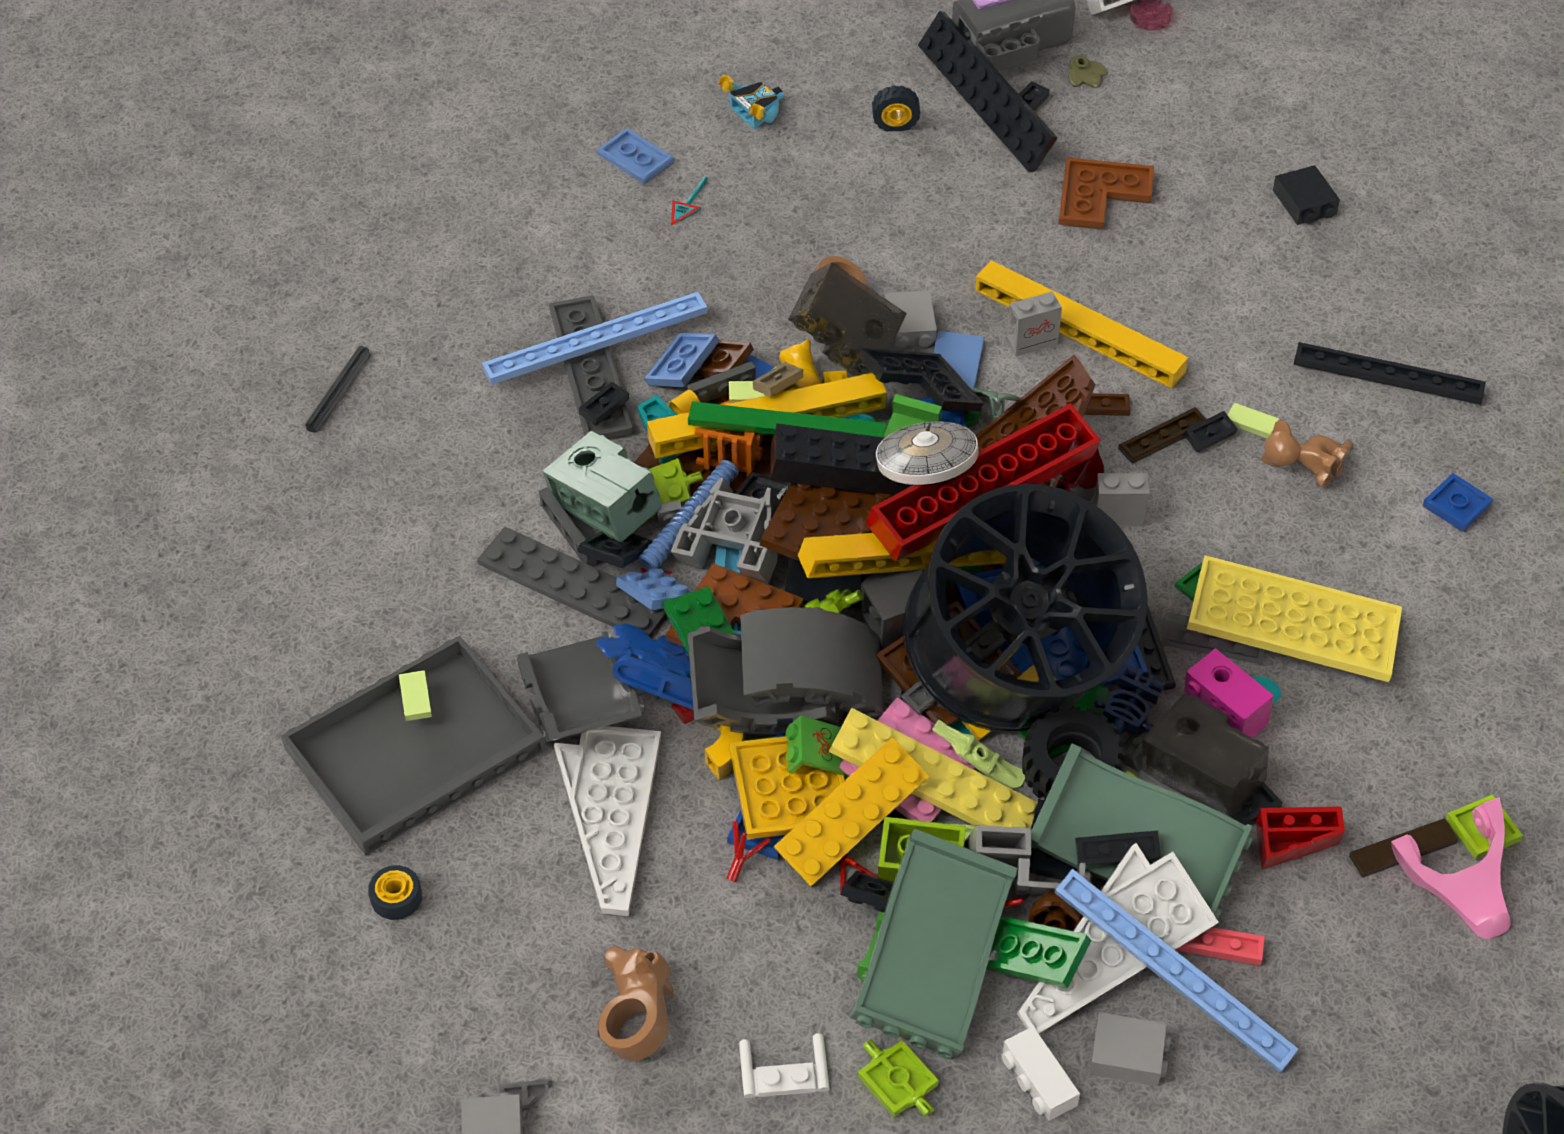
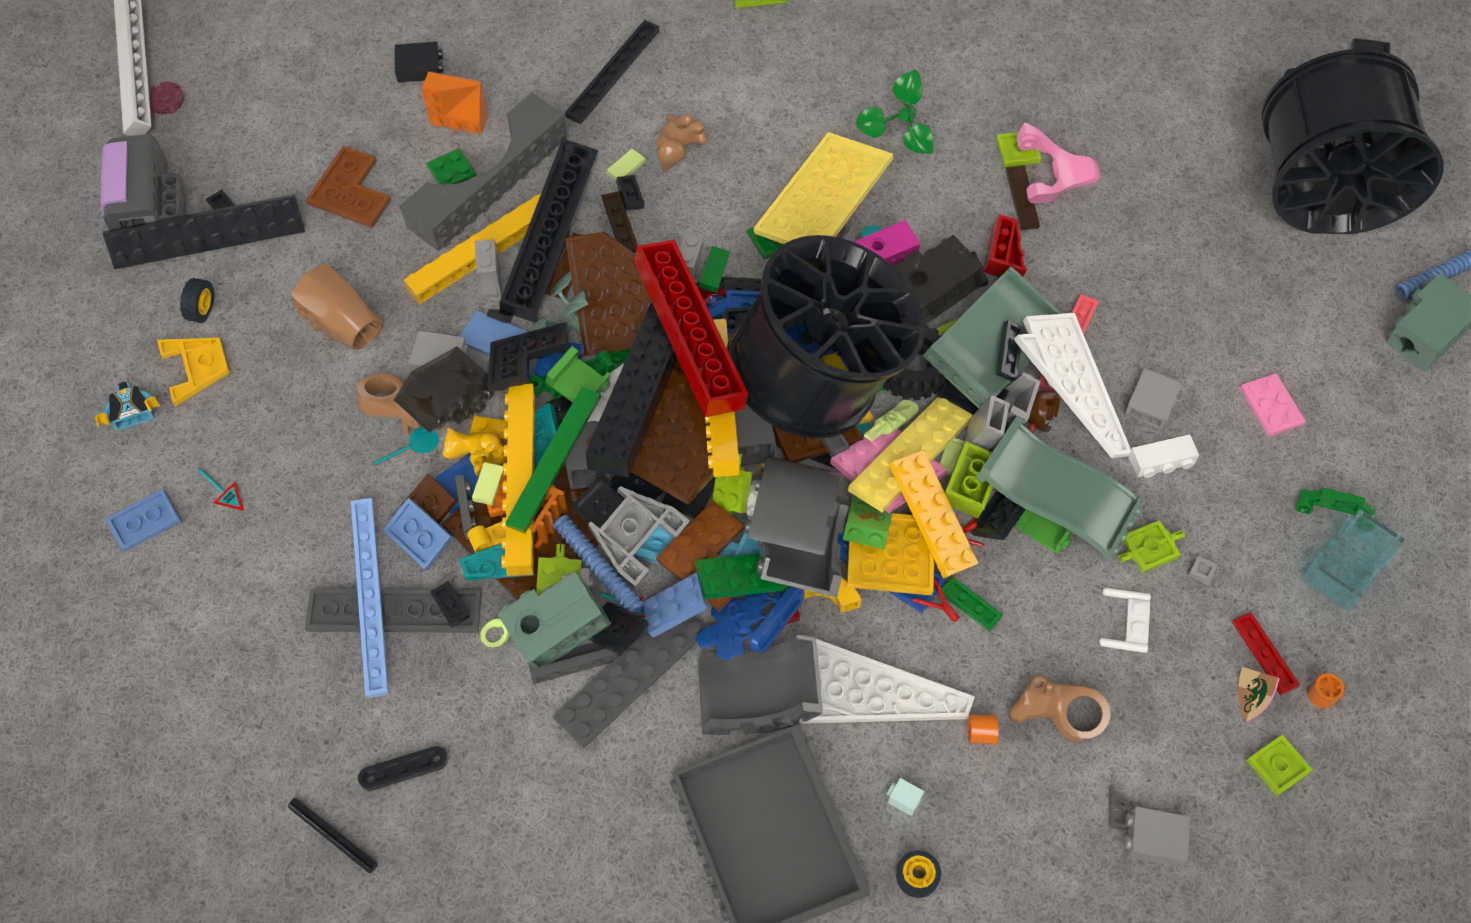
camera: 75 degrees left, 10 degrees up
(415, 695) = (728, 820): yellowish green tile -> none
(418, 421) = (402, 768): none -> black plate
(484, 863) = (905, 796): none -> light aqua brick
(587, 925) = (983, 729): none -> orange piece
(755, 891) = (971, 604): none -> green tile
(778, 379) = (495, 456): dark tan plate -> none
(795, 336) = (419, 441): none -> teal piece
(828, 142) = (203, 363): none -> yellow wing
(927, 453) = (658, 353): dish -> none
(928, 213) = (335, 308): none -> medium nougat animal
(983, 357) = (500, 316): none -> black tile
(1037, 951) = (1080, 424): green plate -> none
(1086, 71) = (210, 161): olive plate -> none
(1114, 358) = (547, 231): none -> black brick
(1145, 535) = (714, 269): none -> green tile
(1169, 267) = (451, 168): none -> green plate
(1176, 971) = (1107, 349): light blue plate -> none
(1241, 315) = (443, 211): none -> dark grey arch
(1248, 233) = (455, 102): none -> orange slope
(1457, 502) = (745, 72): blue plate -> none
(1480, 650) = (909, 89): none -> green plant

